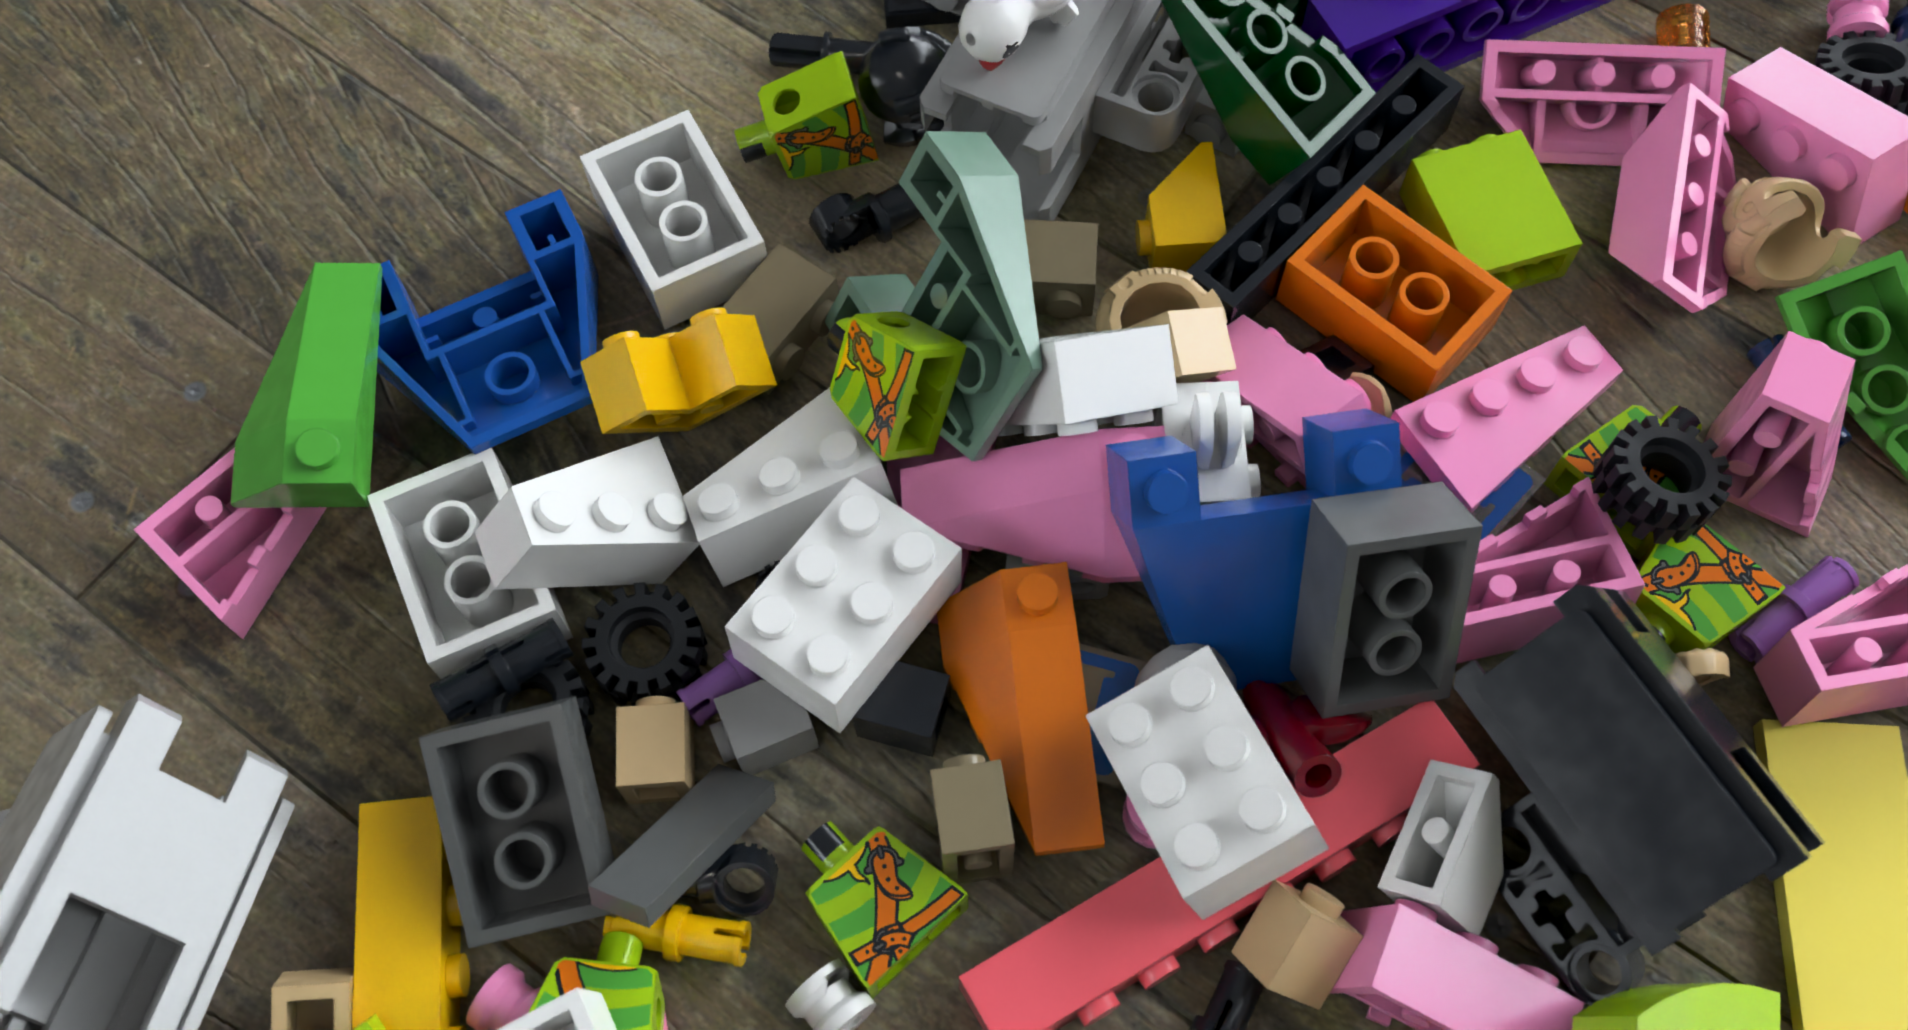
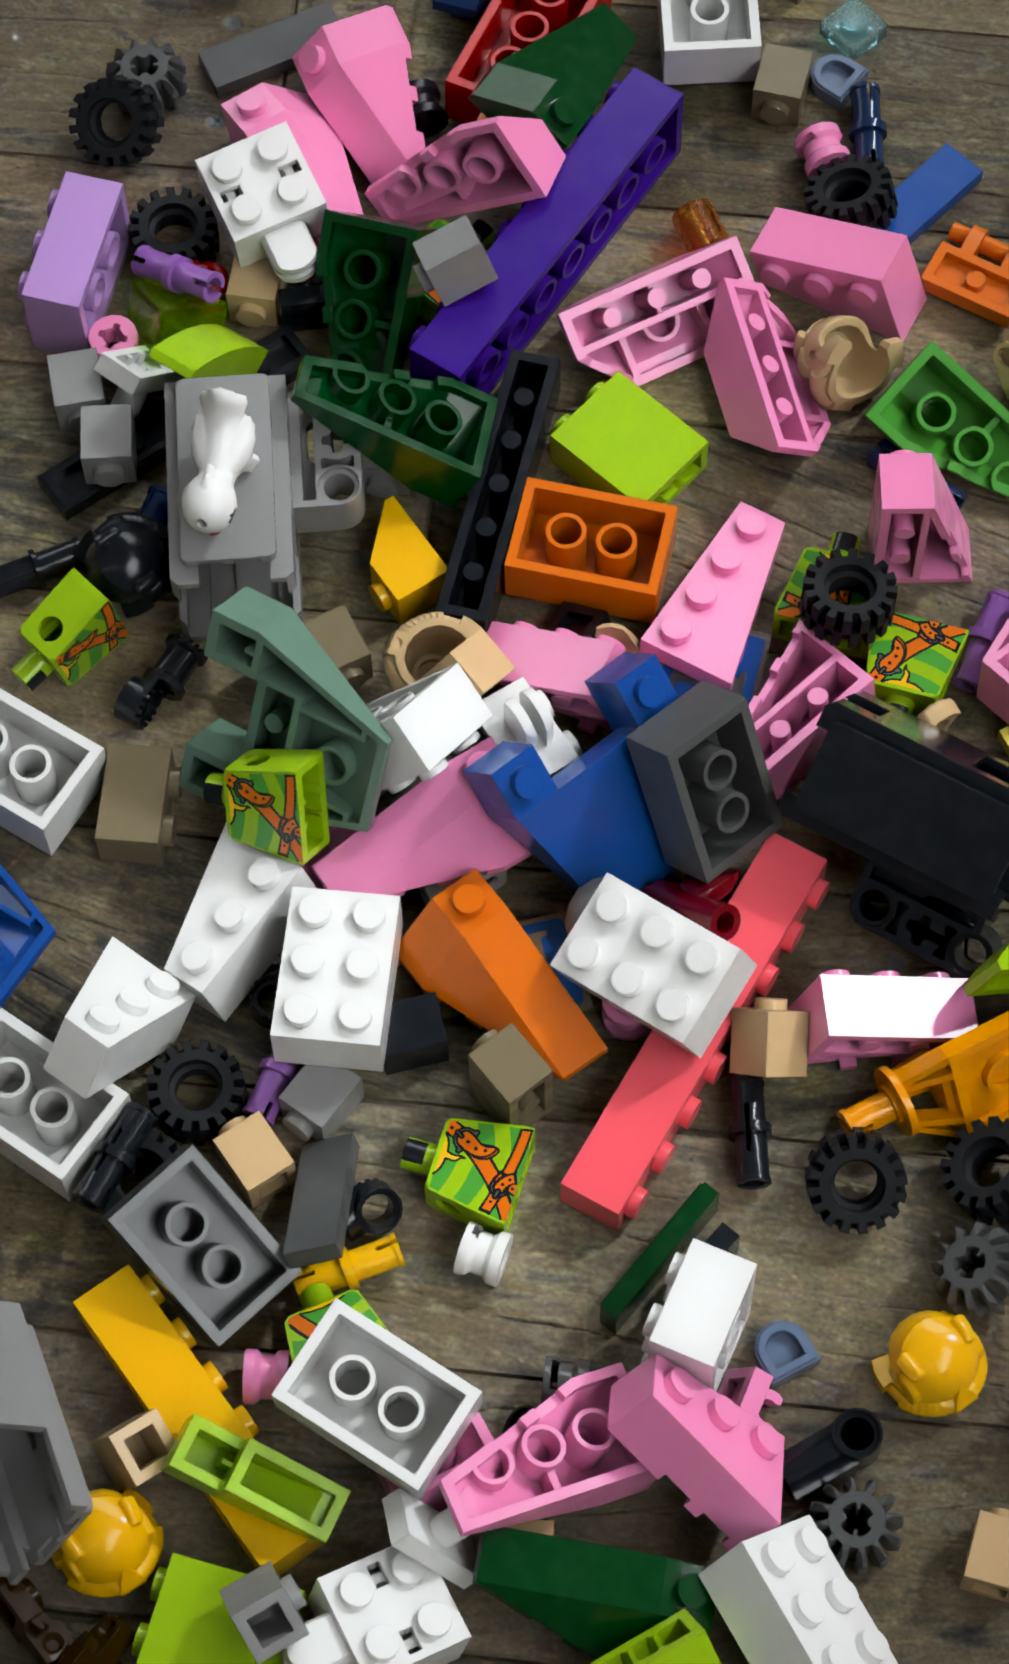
camera: 30 degrees left, 0 degrees up
(678, 376) = (102, 887): yellow brick -> none
(1450, 847) = (834, 923): white slope -> none

